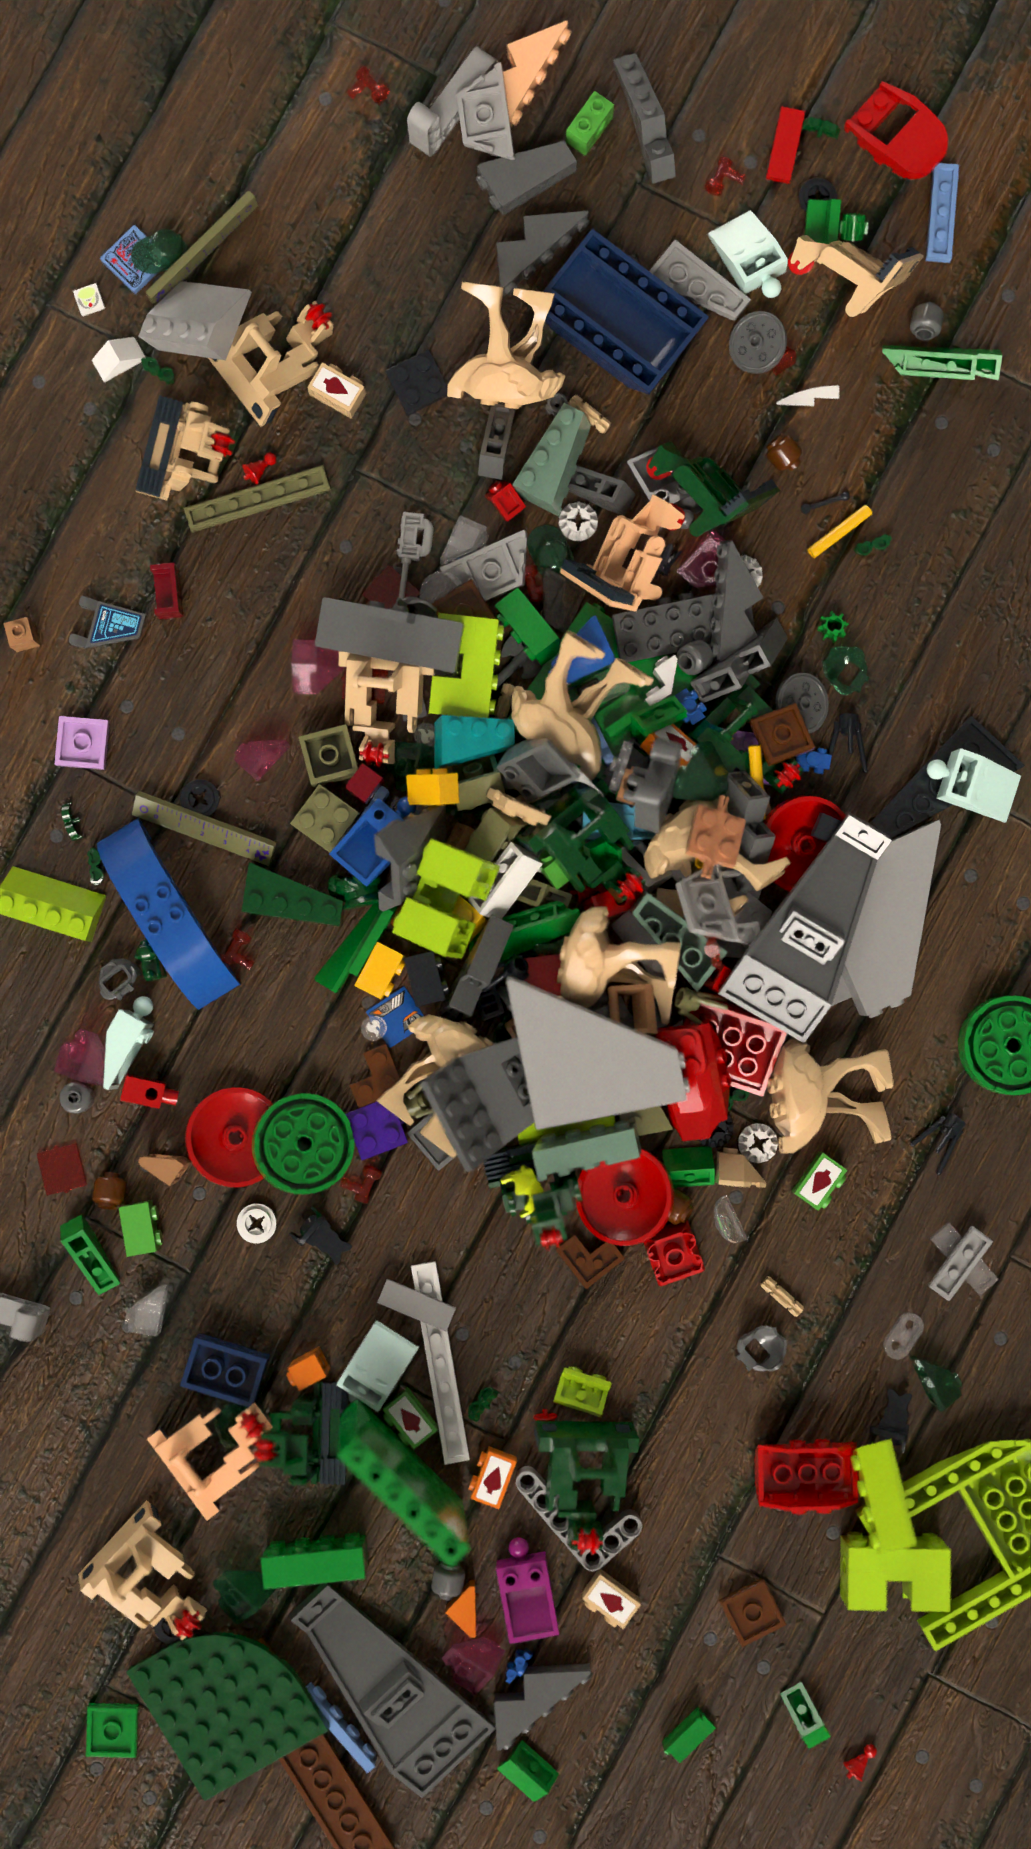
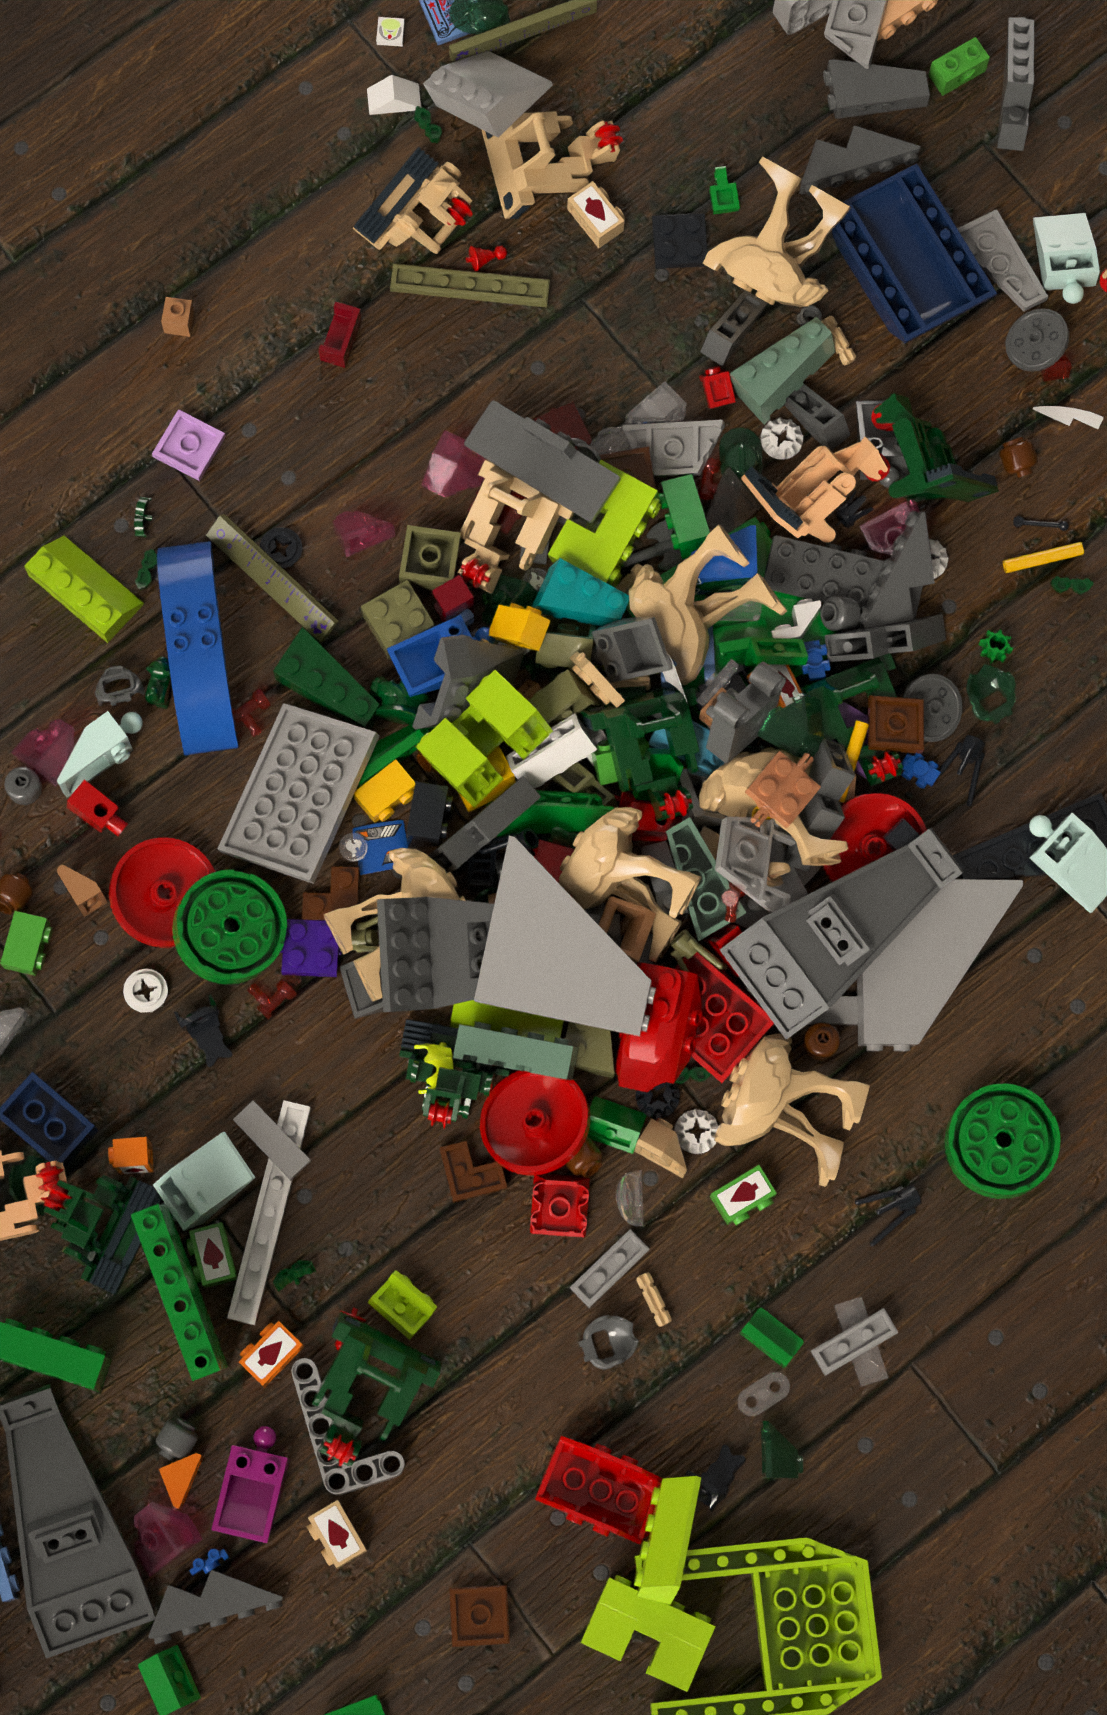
camera: 20 degrees right, 10 degrees down
(109, 624) = (268, 344): flag -> none
(309, 1005) = (298, 793): none -> light grey plate
(408, 547) = (600, 394): light grey piece -> none
(438, 325) = (723, 195): none -> green plate
(714, 185) = (1059, 175): clear red piece -> none
(735, 1286) = (609, 1268): none -> light grey tile
(824, 1033) = (813, 1045): none -> reddish brown head
(890, 1286) = (772, 1337): none -> green panel

